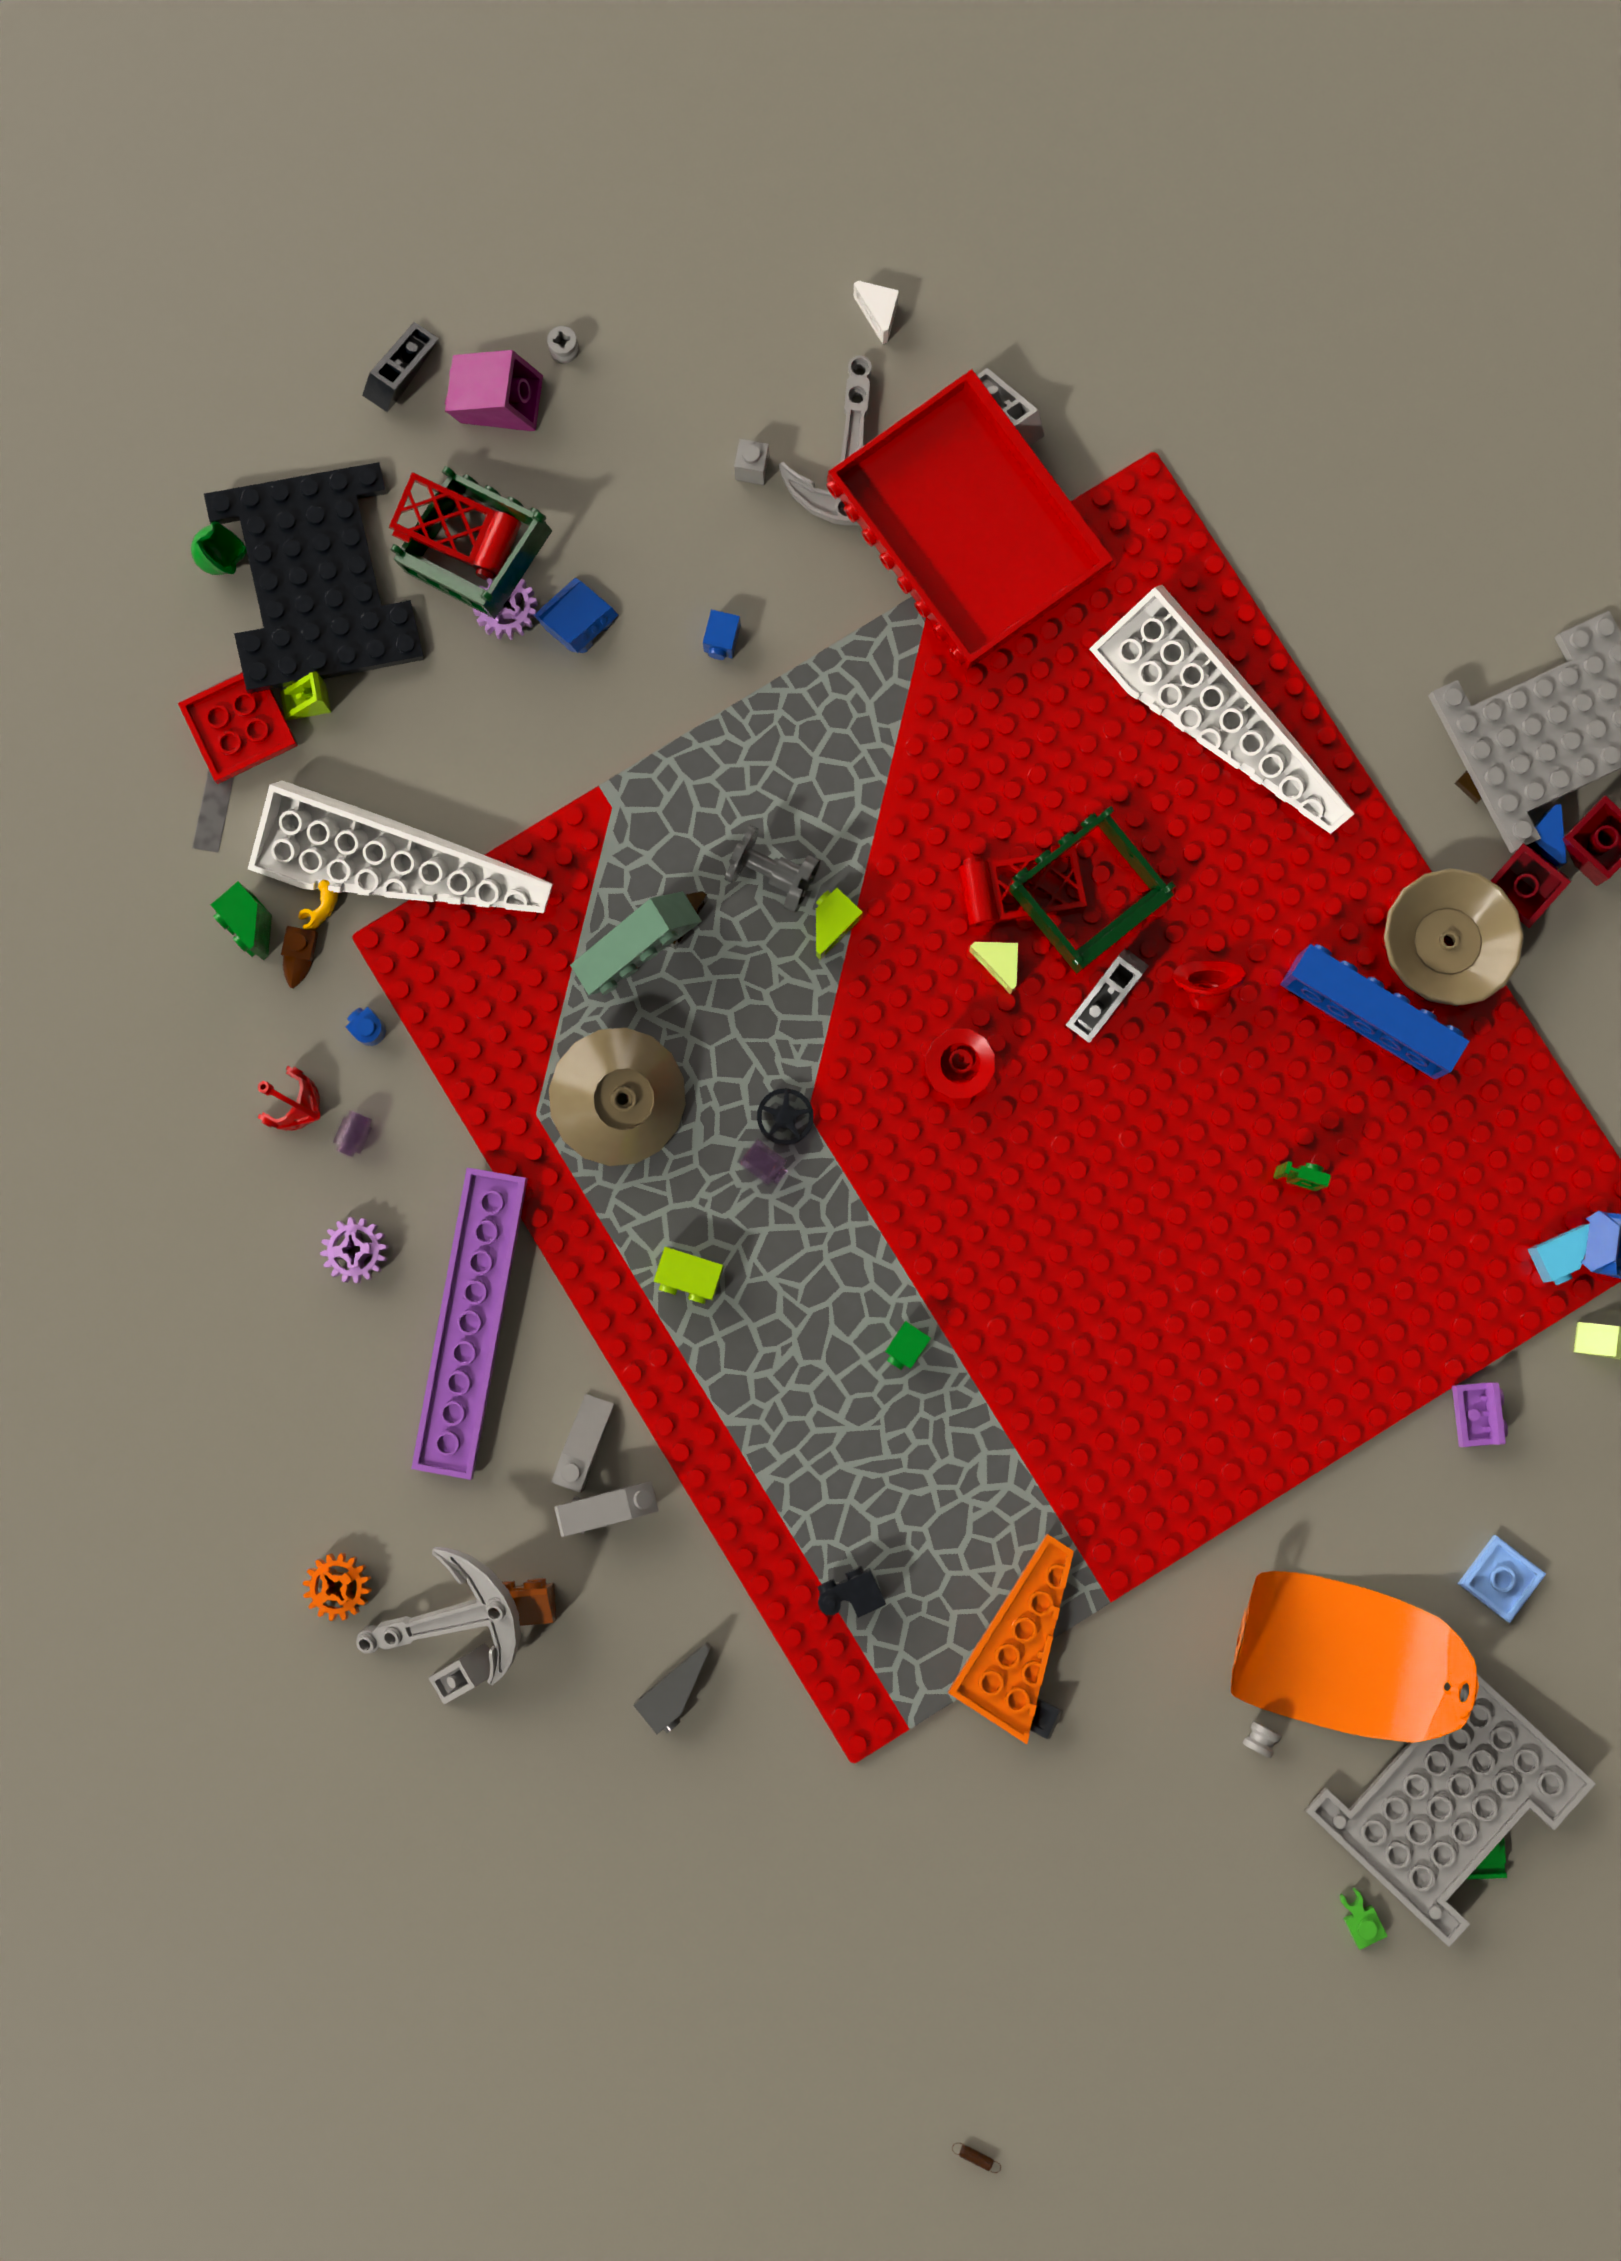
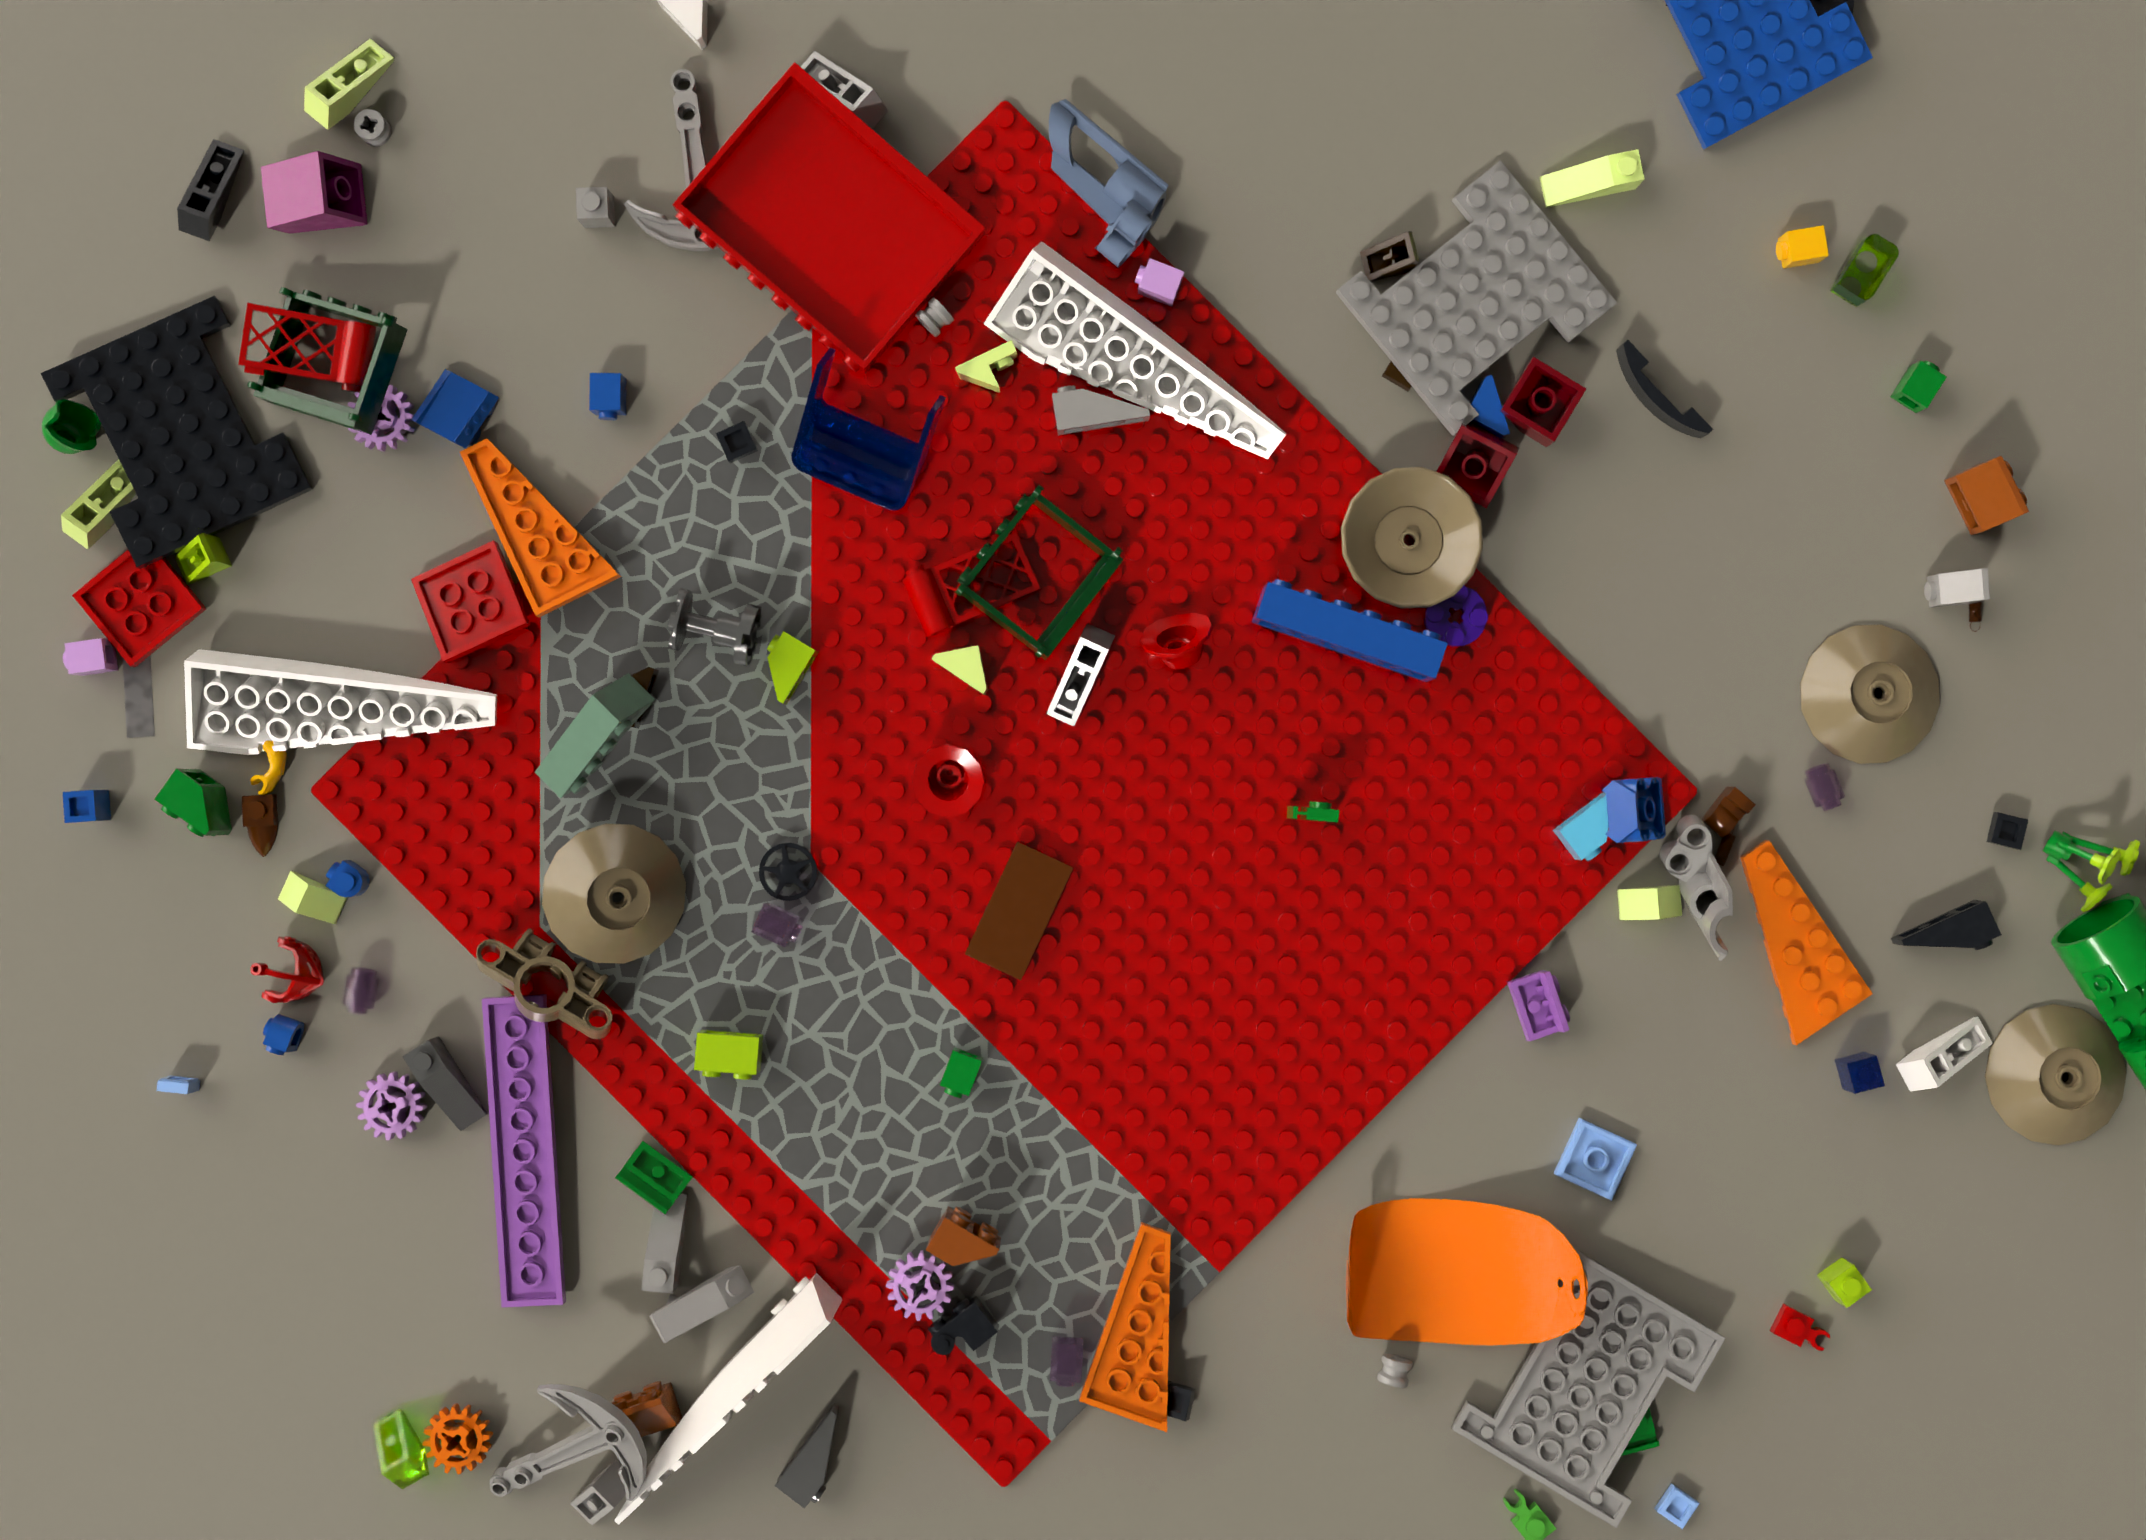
camera: 20 degrees left, 5 degrees up
(140, 899) = (86, 806): none -> blue panel
(158, 1182) = (178, 1084): none -> light blue tile
(179, 764) = (90, 657): none -> lavender brick
(215, 632) = (90, 514): none -> yellowish green slope
(268, 1158) = (282, 1034): none -> blue plate
(279, 1584) = (400, 1450): none -> clear neon green slope
(328, 1037) = (311, 898): none -> yellowish green slope
(410, 1241) = (445, 1082): none -> dark grey slope
(526, 1138) = (534, 955): none -> dark tan piece
(547, 794) = (470, 602): none -> red plate
(548, 299) = (345, 84): none -> yellowish green slope
(587, 1378) = (653, 1177): none -> green plate
(627, 758) = (542, 545): none -> orange wing
(639, 1582) = (750, 1370): none -> white wedge
(808, 1533) = (931, 1291): none -> lavender gear
(832, 704) = (736, 442): none -> black plate
(869, 1505) = (961, 1239): none -> dark orange slope
(943, 739) = (856, 452): none -> clear blue windscreen
(944, 1651) = (1066, 1360): none -> clear purple brick
(997, 1205) = (1019, 910): none -> reddish brown tile
(1045, 632) = (934, 317): none -> light grey wheel
(1077, 689) = (979, 368): none -> yellowish green slope
(1171, 751) = (1087, 410): none -> light grey slope
(1253, 565) = (1128, 200): none -> sand blue panel
(1264, 647) = (1159, 282): none -> lavender brick
(1487, 675) = (1390, 257): none -> dark brown slope
(1494, 1026) = (1473, 618): none -> dark purple plate
(1511, 1943) = (1676, 1506): none -> light blue tile

